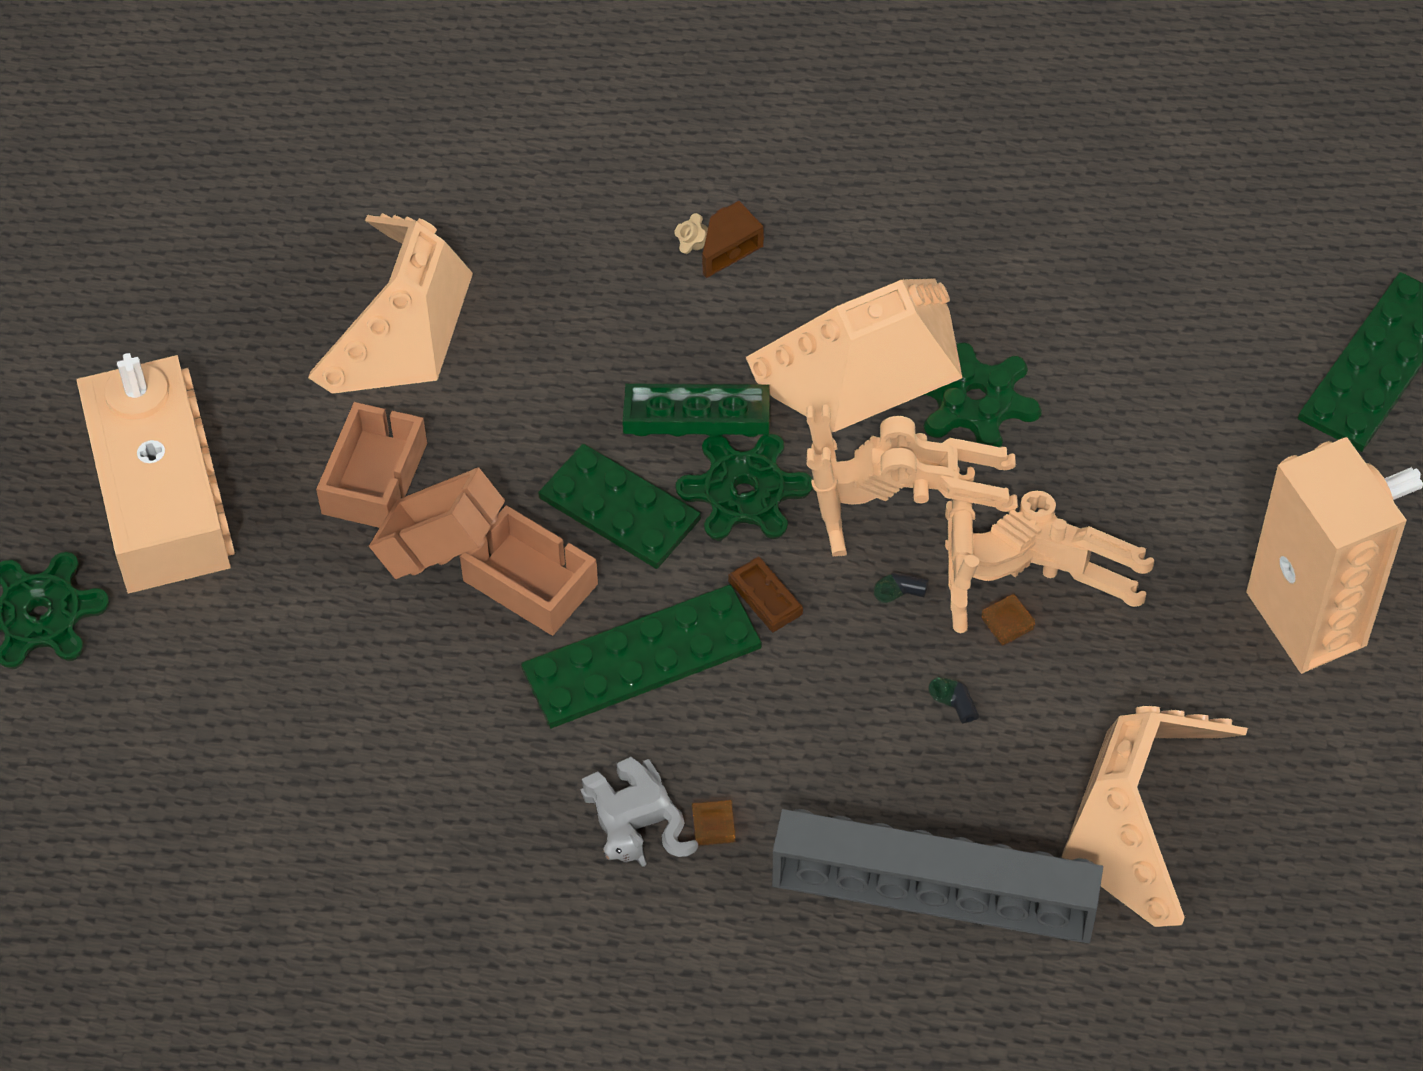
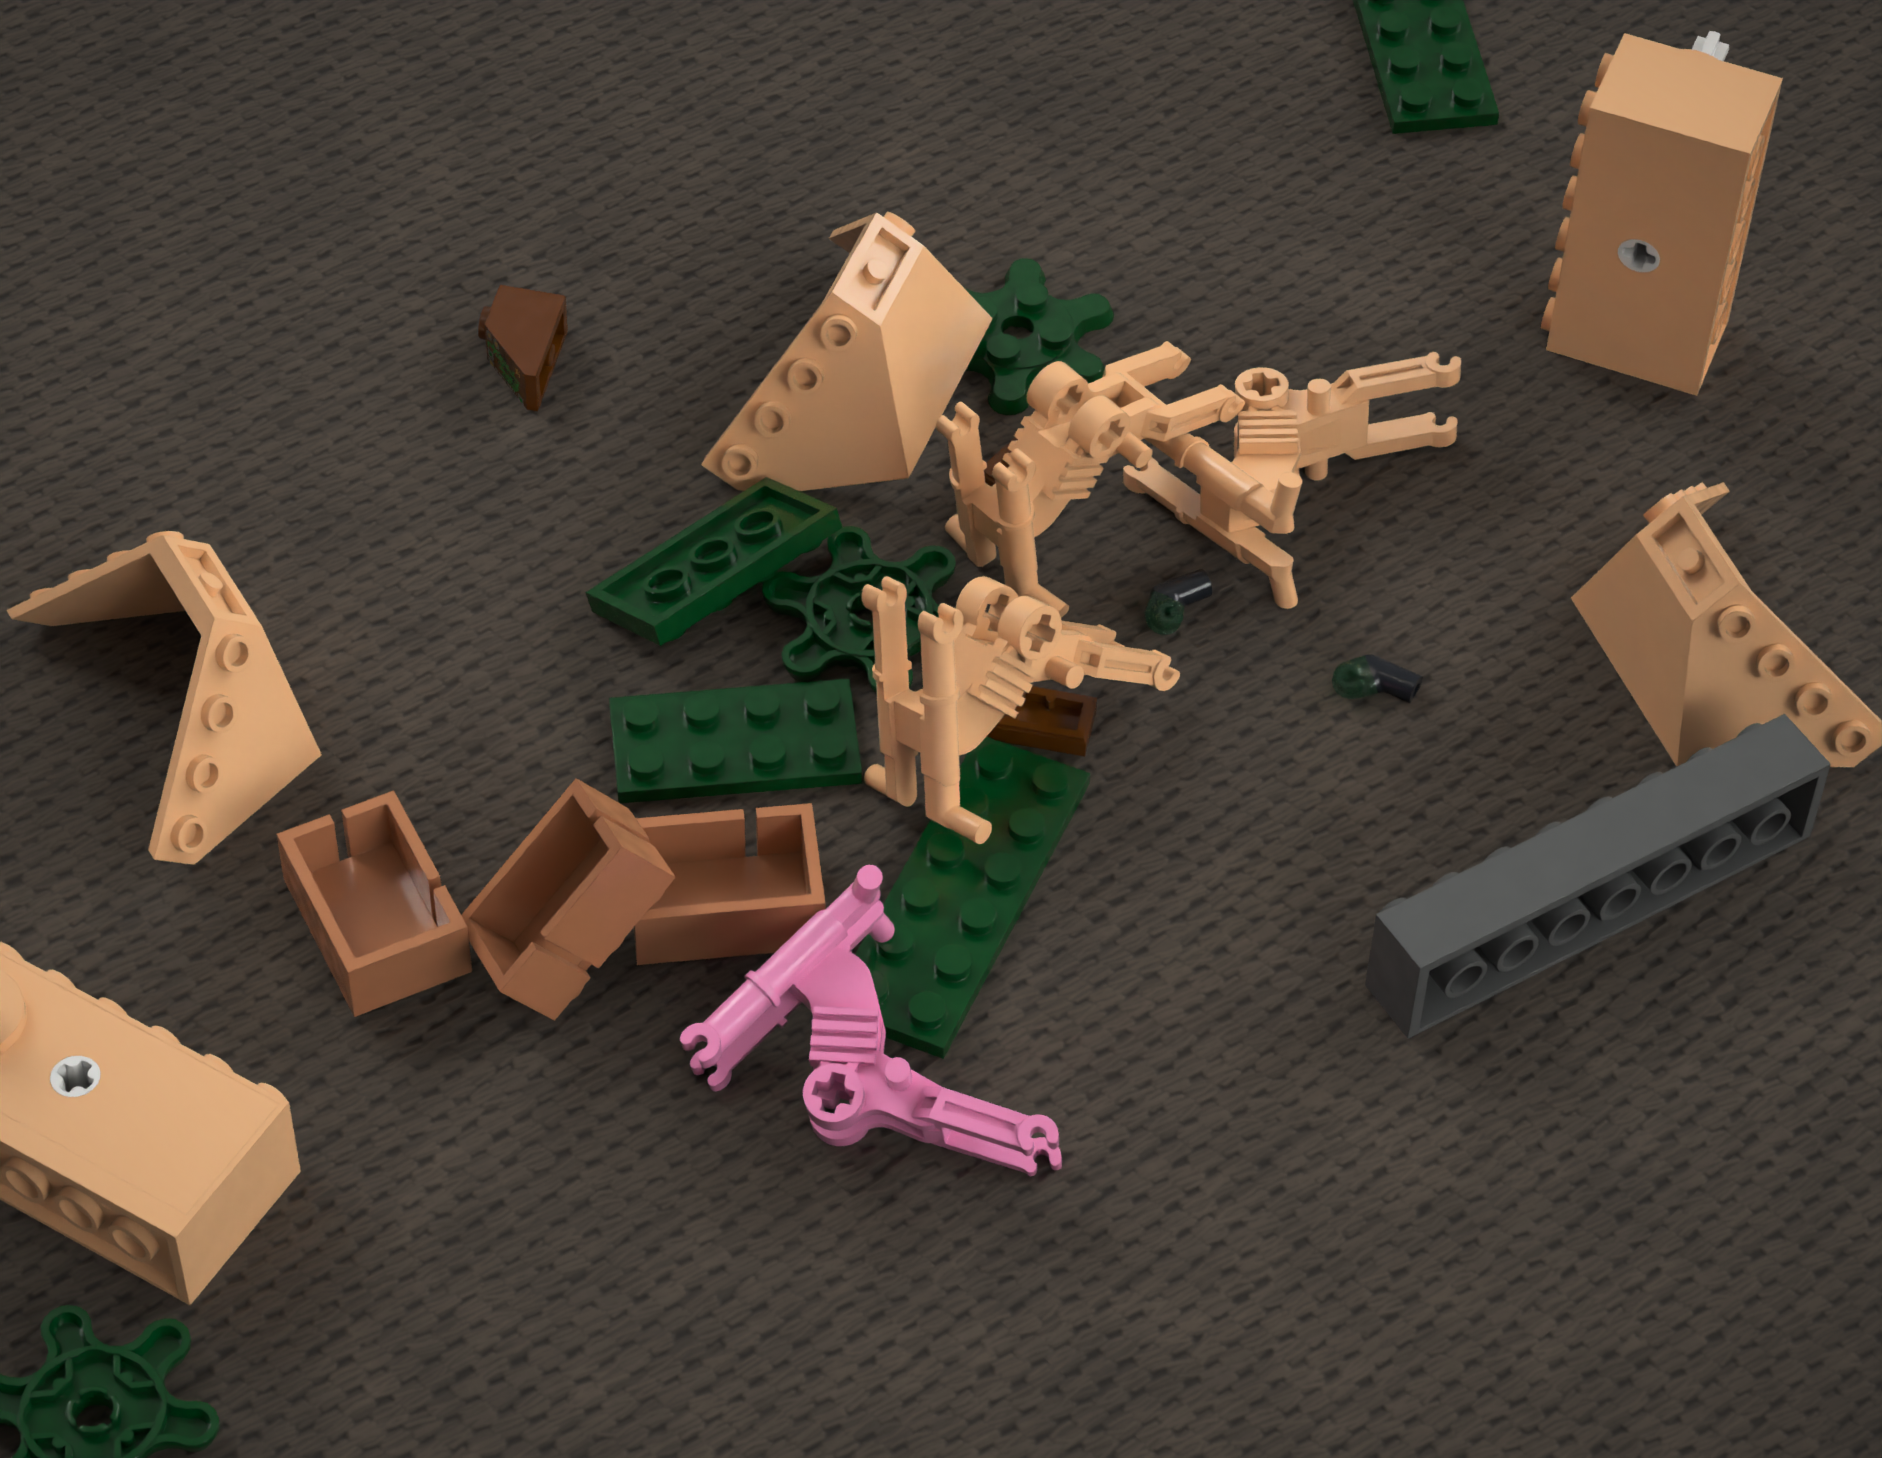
camera: 45 degrees left, 5 degrees down
(495, 684) = (850, 1041): none -> bright pink piece
(632, 808) = (1162, 1062): light grey animal -> none
(691, 234) = (485, 370): tan plate -> none
(713, 822) = (1268, 1014): clear orange plate -> none
(738, 550) = (972, 677): none -> light nougat piece
(1008, 619) = (1338, 550): clear orange plate -> none

